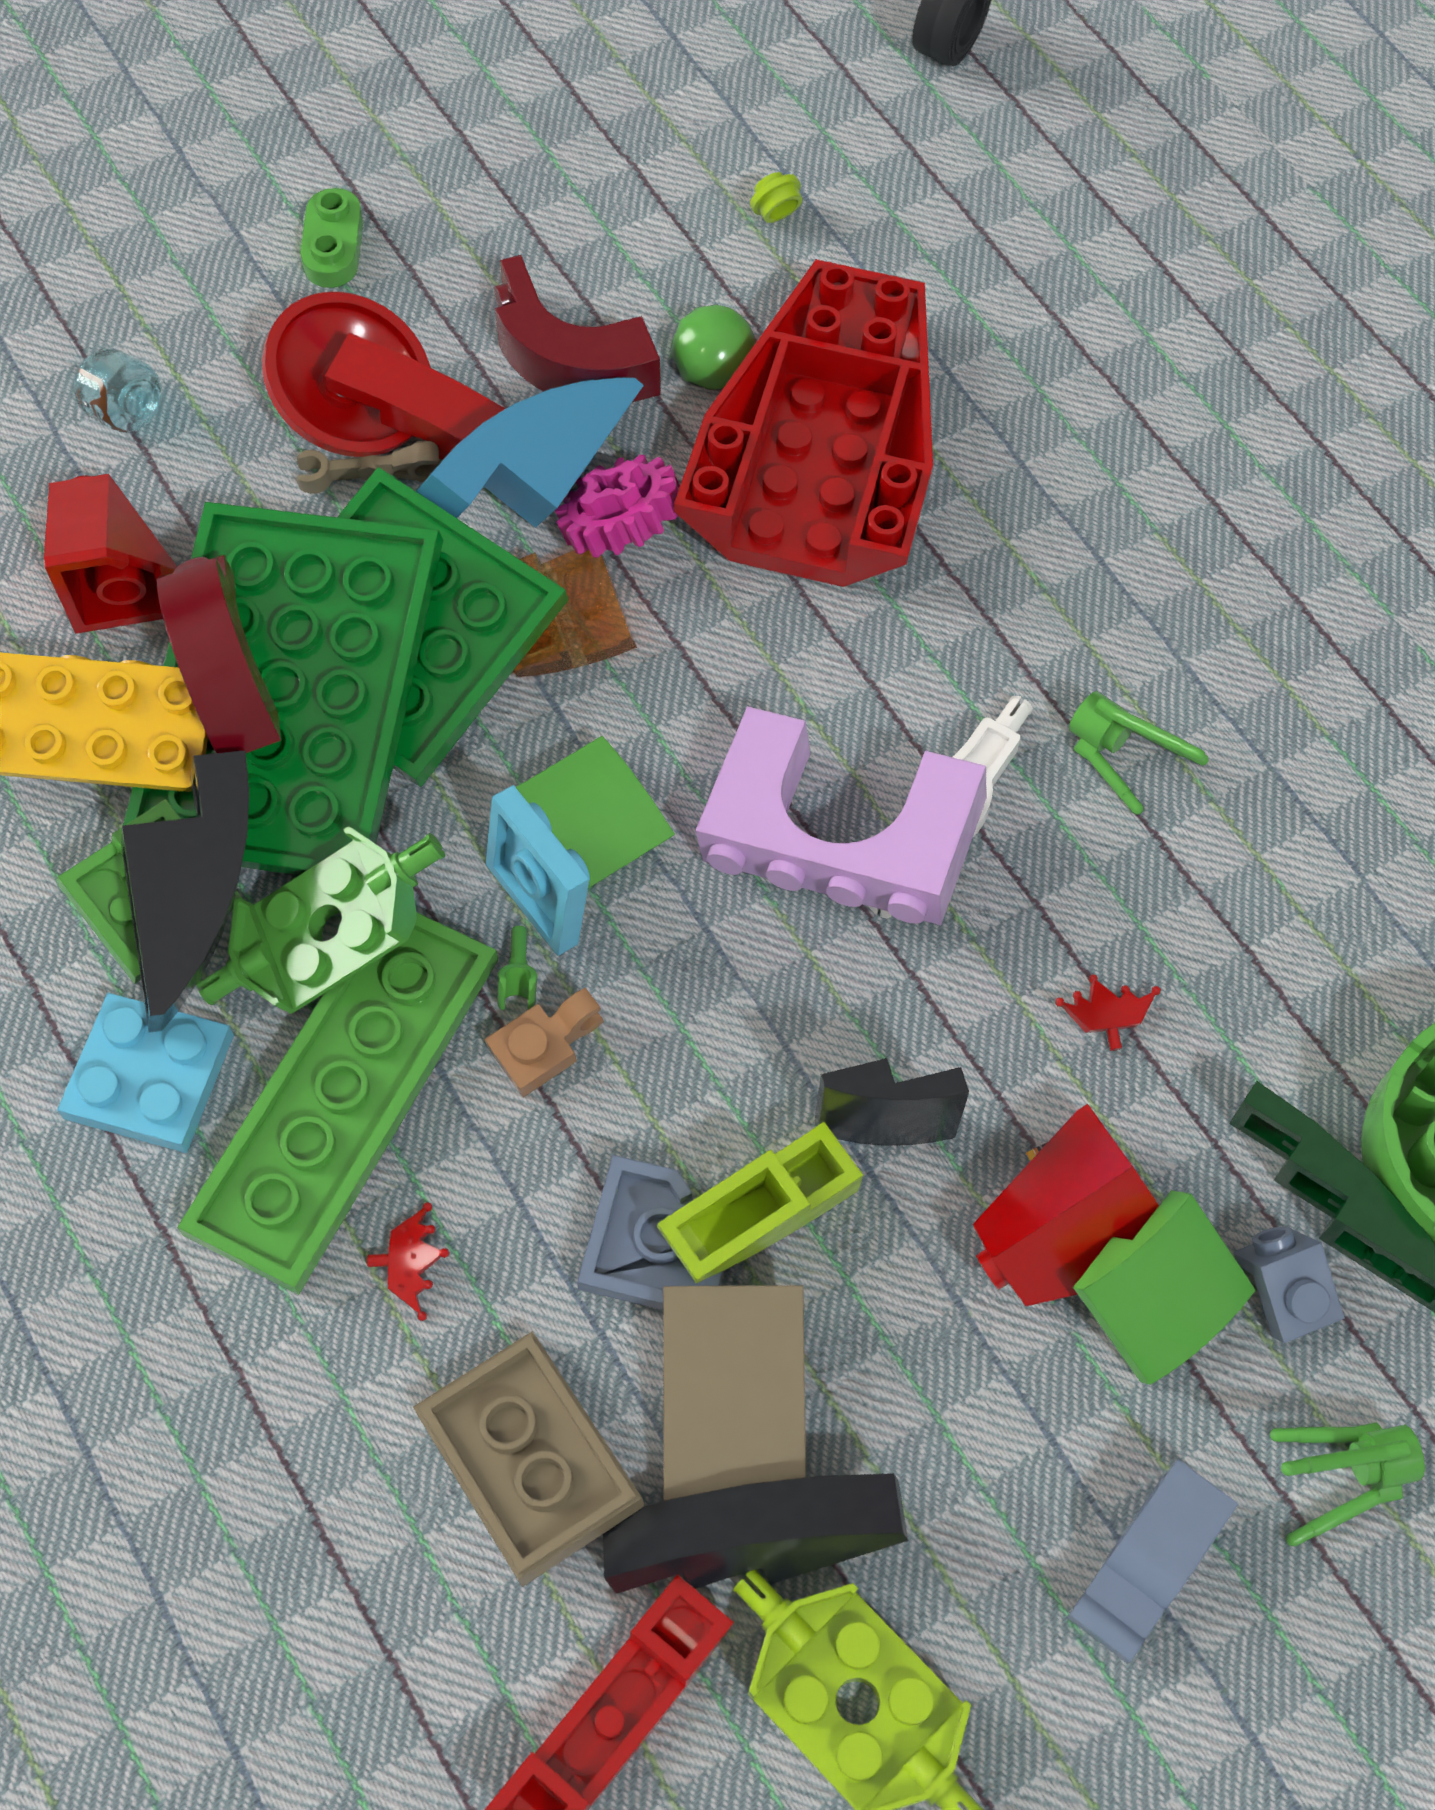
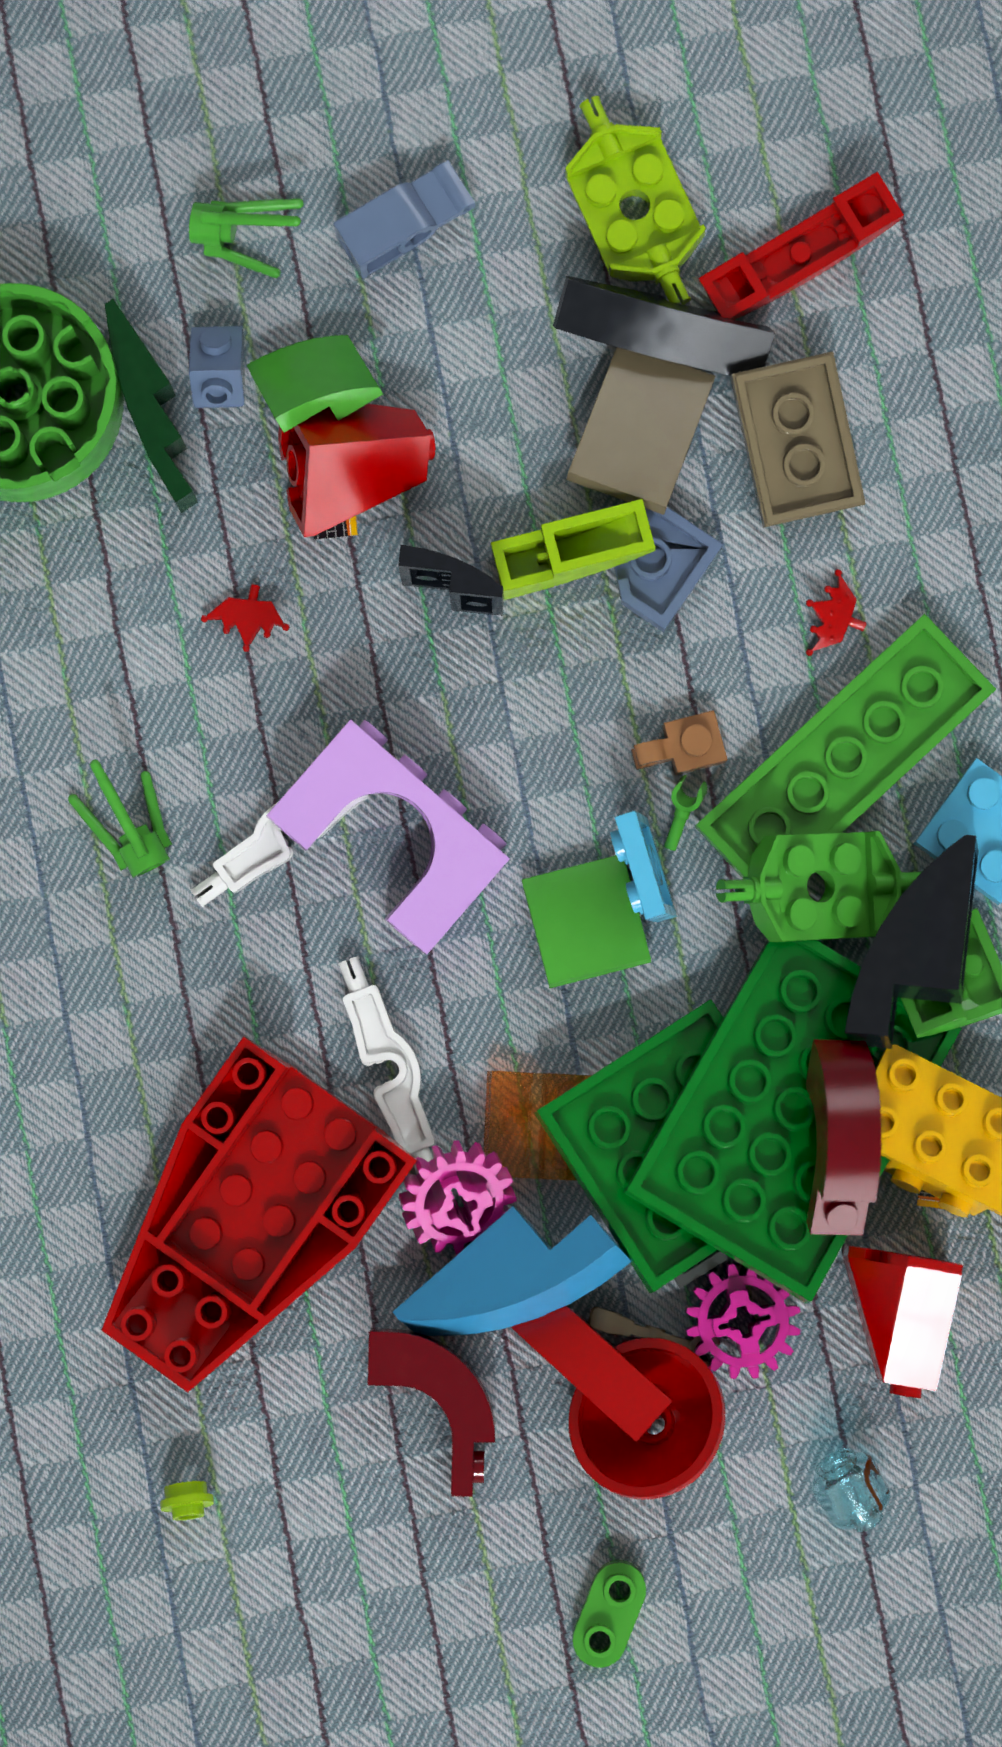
camera: 155 degrees left, 20 degrees up
(282, 481) = (746, 1344): none -> dark pink gear
(711, 345) = (309, 1351): bright green hair -> none
(760, 633) = (380, 1043): none -> white piece

